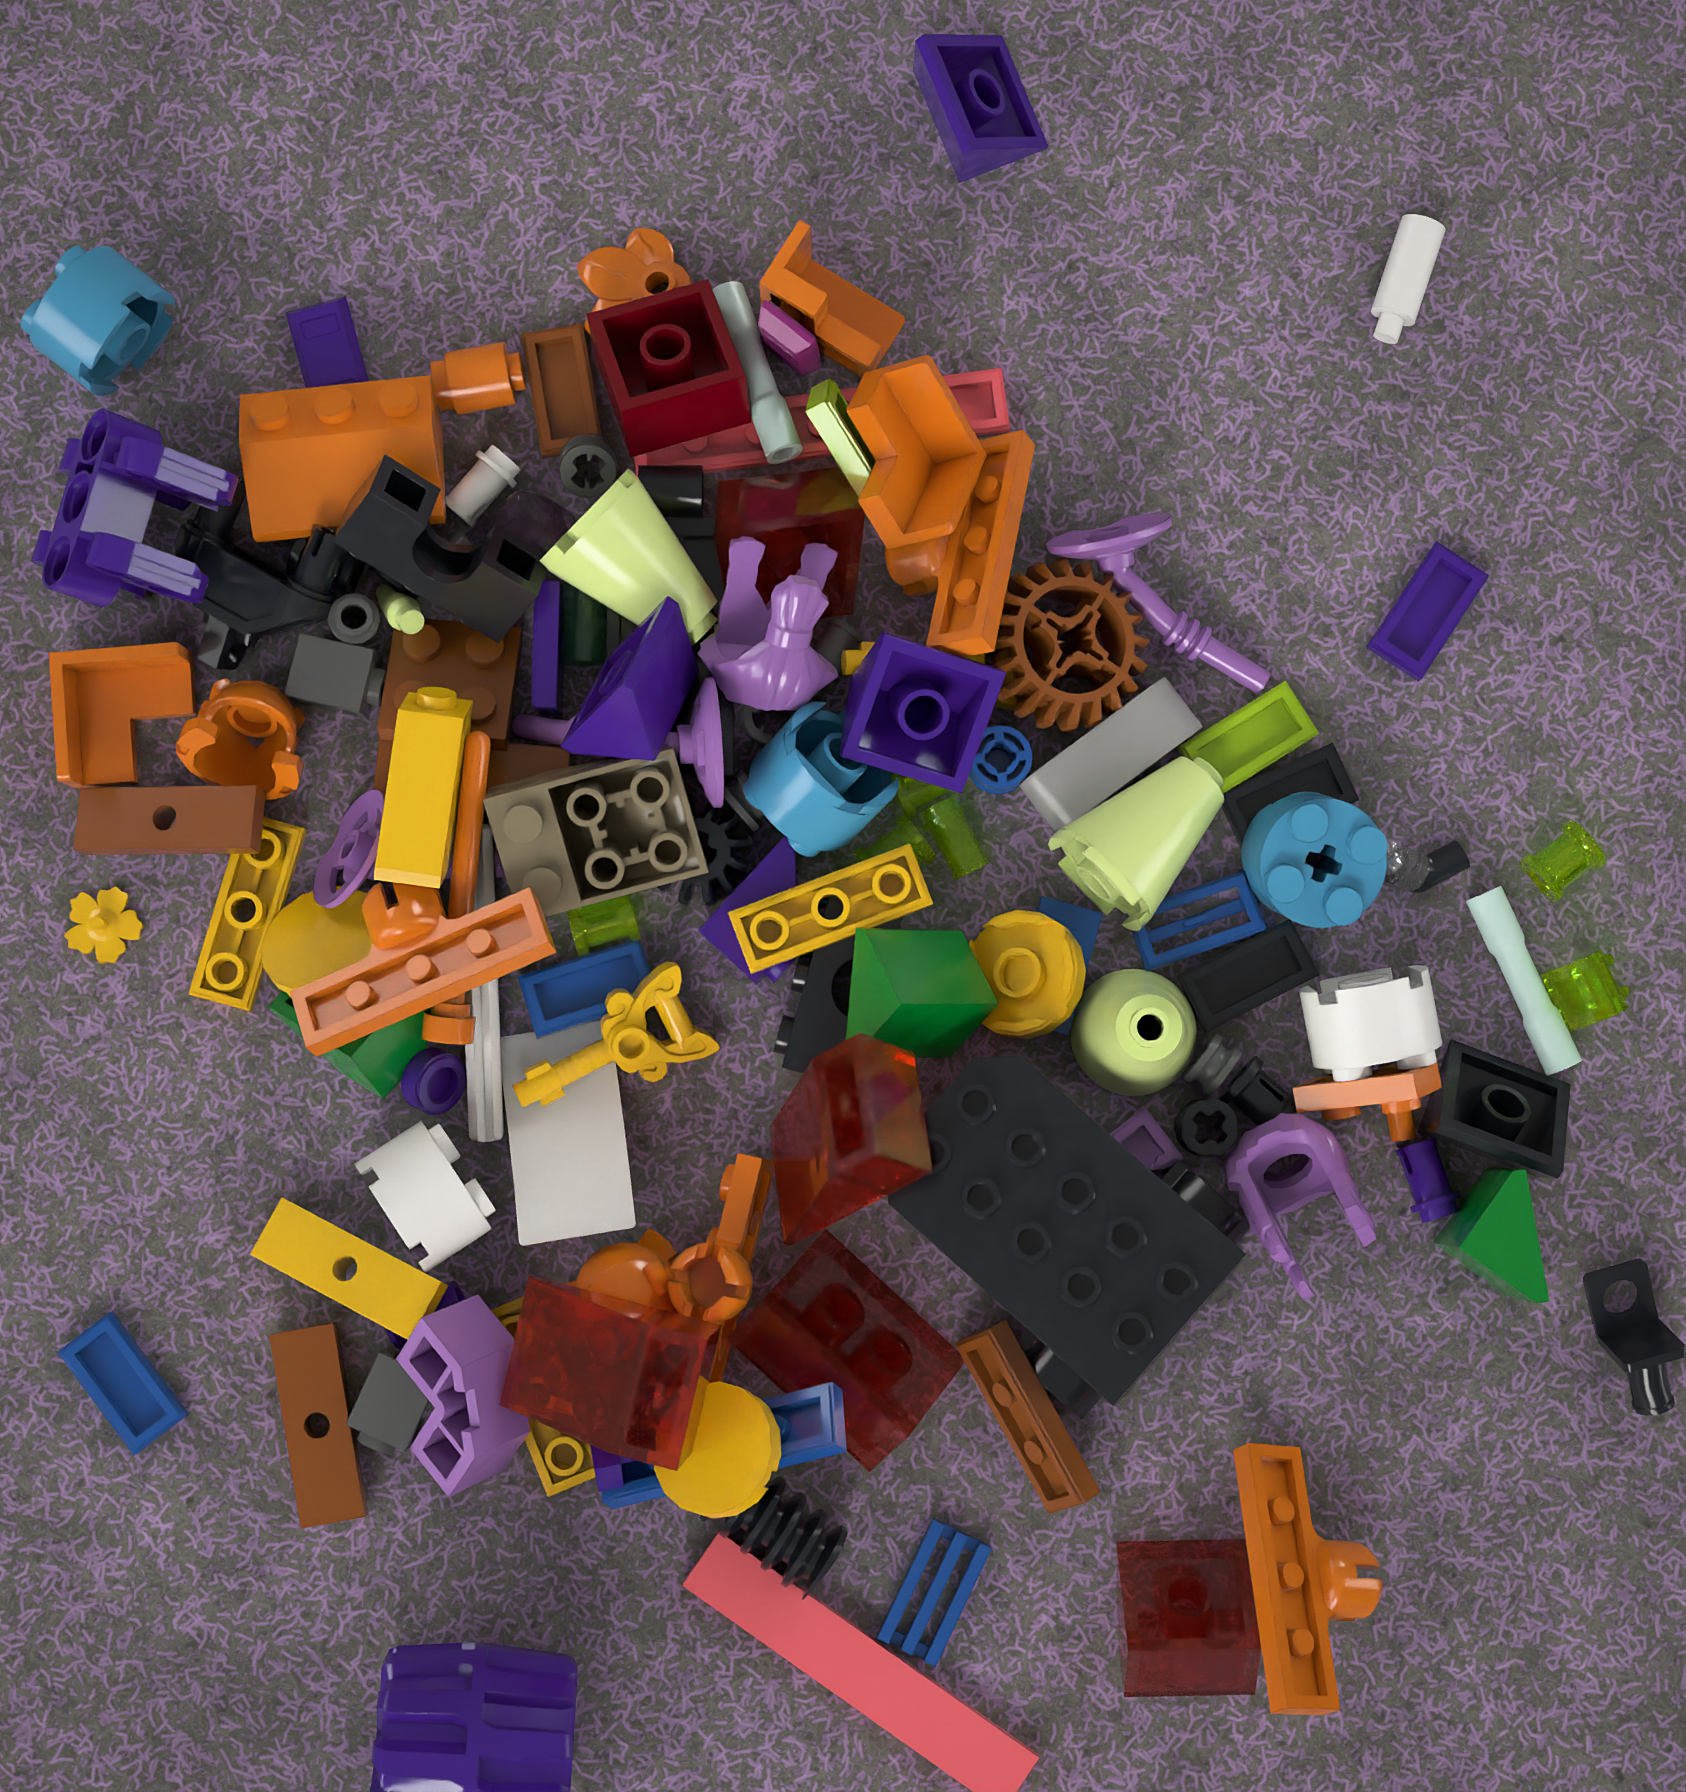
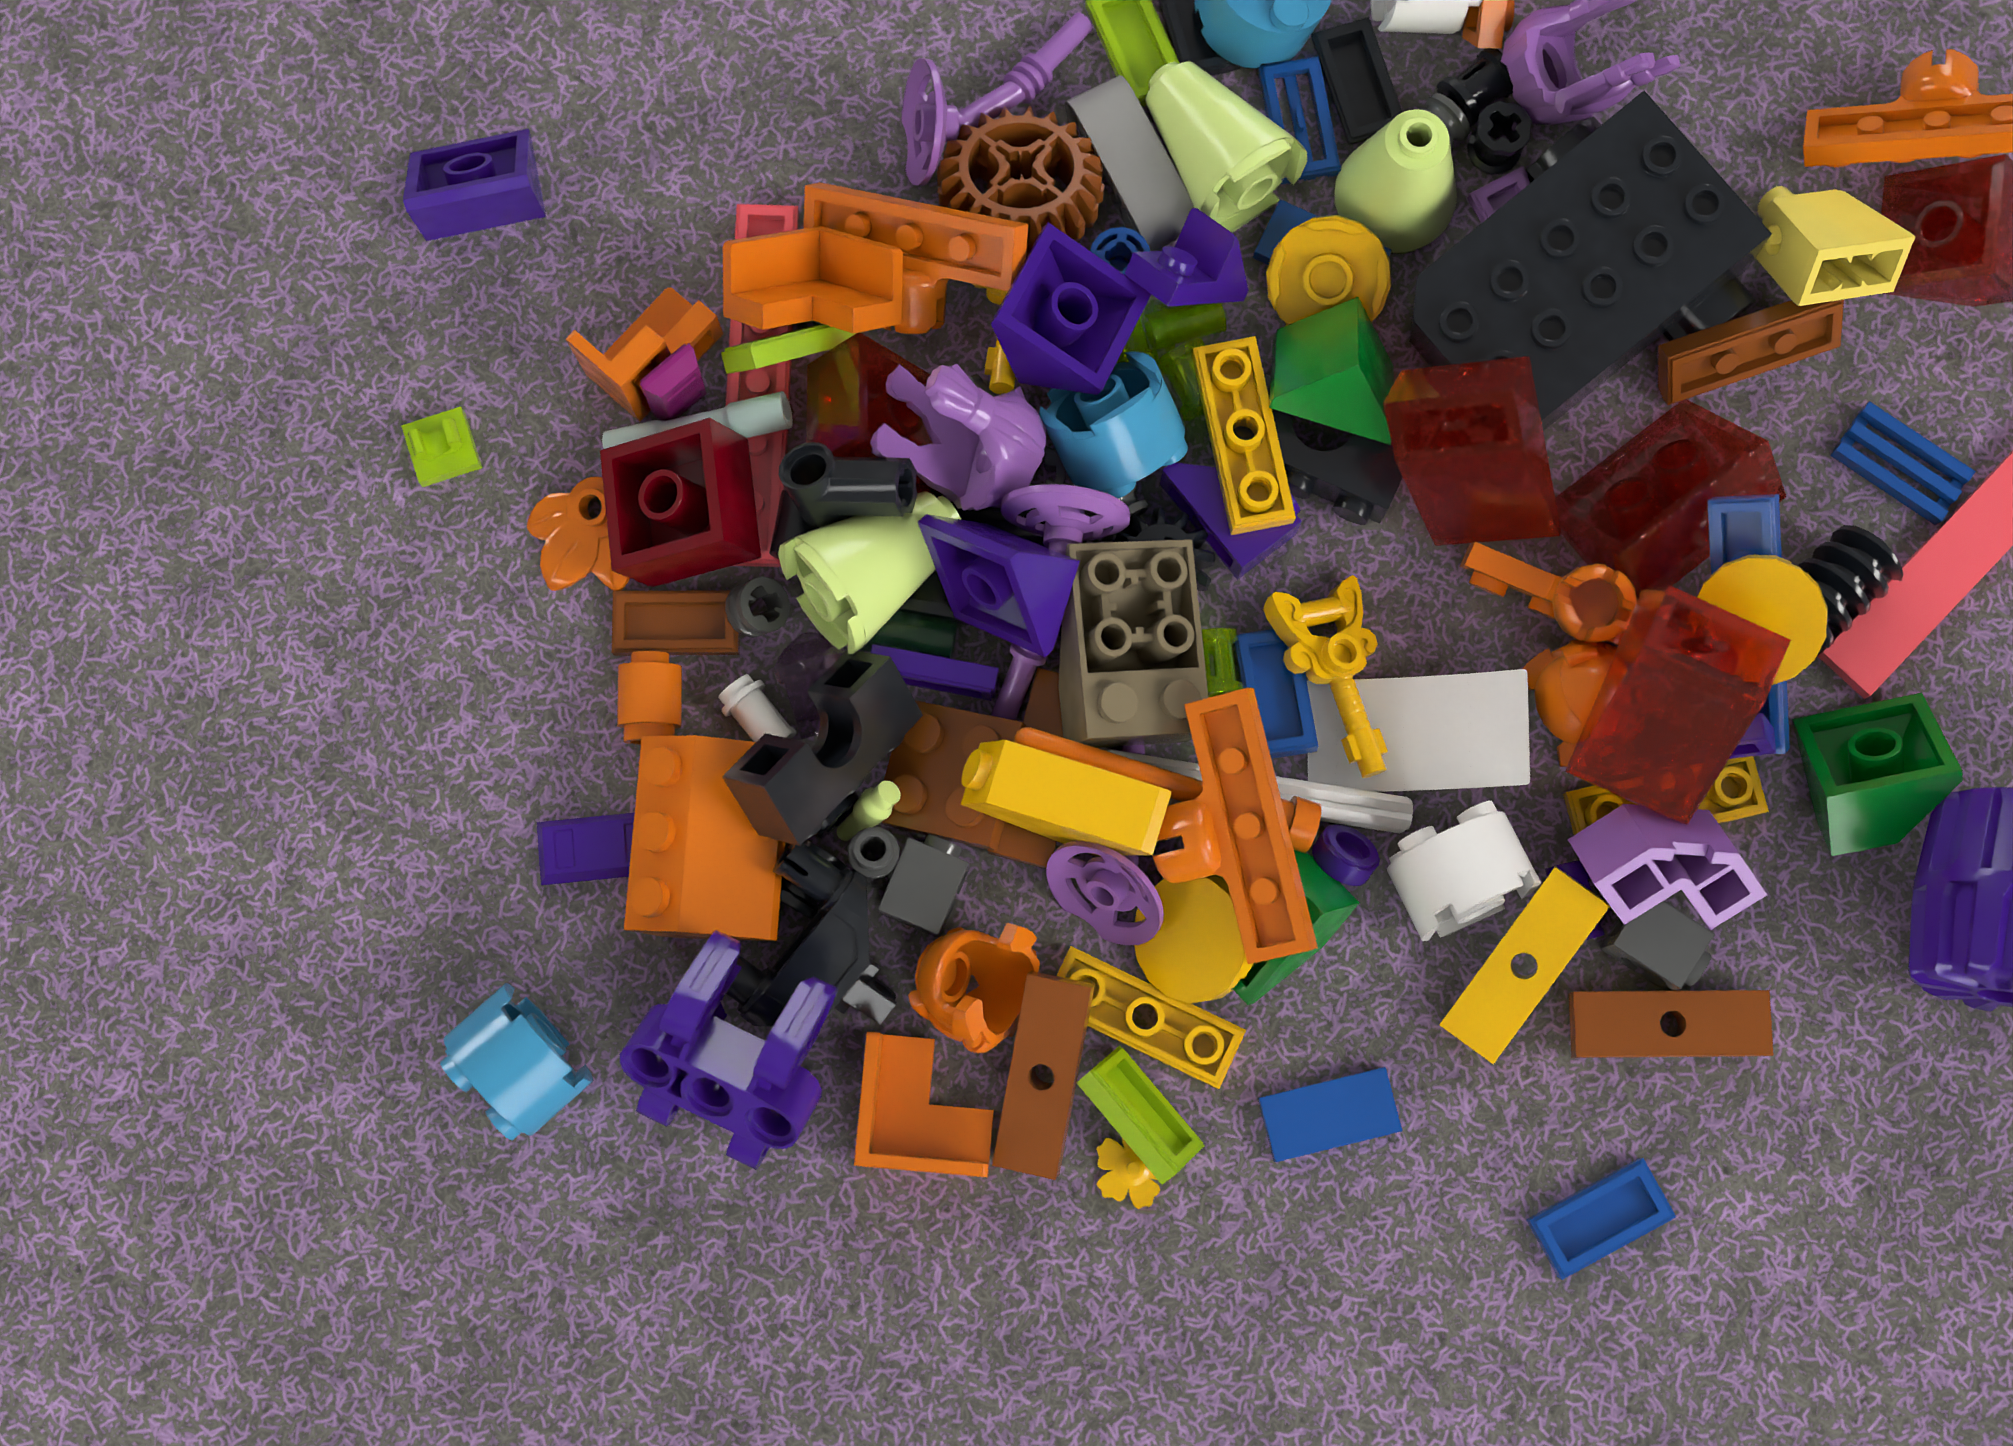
camera: 75 degrees left, 5 degrees down
(149, 921) = (1141, 1114): none -> lime tile
(181, 1105) = (1329, 1114): none -> blue tile
(601, 1593) = (1875, 770): none -> green slope
(698, 522) = (835, 487): none -> black piece
(701, 128) = (441, 446): none -> lime tile
(991, 827) = (1199, 268): none -> dark purple slope
(1140, 1479) = (1830, 246): none -> light yellow torso

